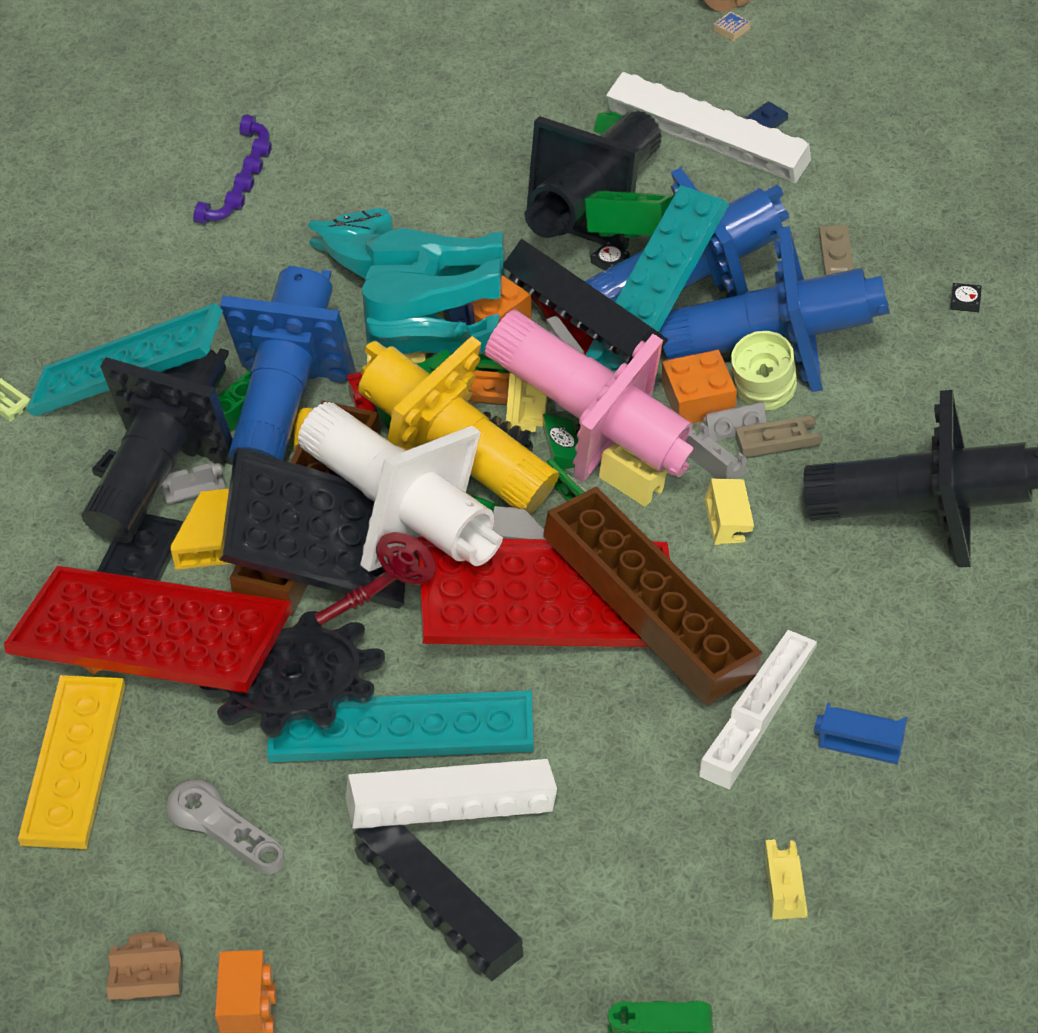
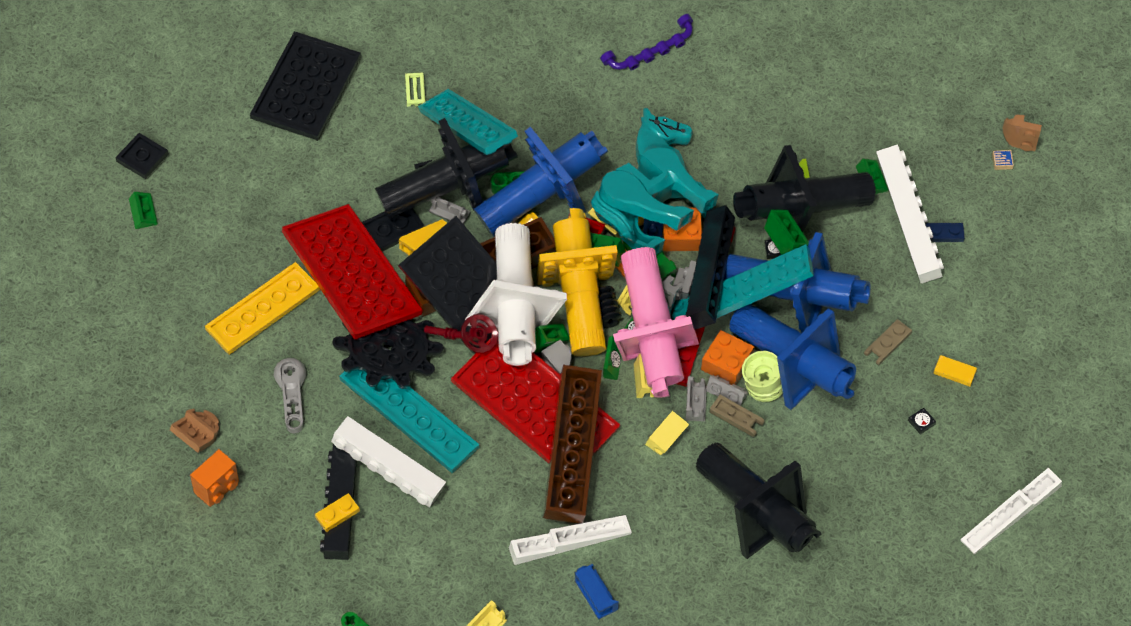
camera: 40 degrees right, 10 degrees up
(457, 903) = (337, 512): none -> yellow plate
(935, 230) = (955, 370): none -> yellow tile

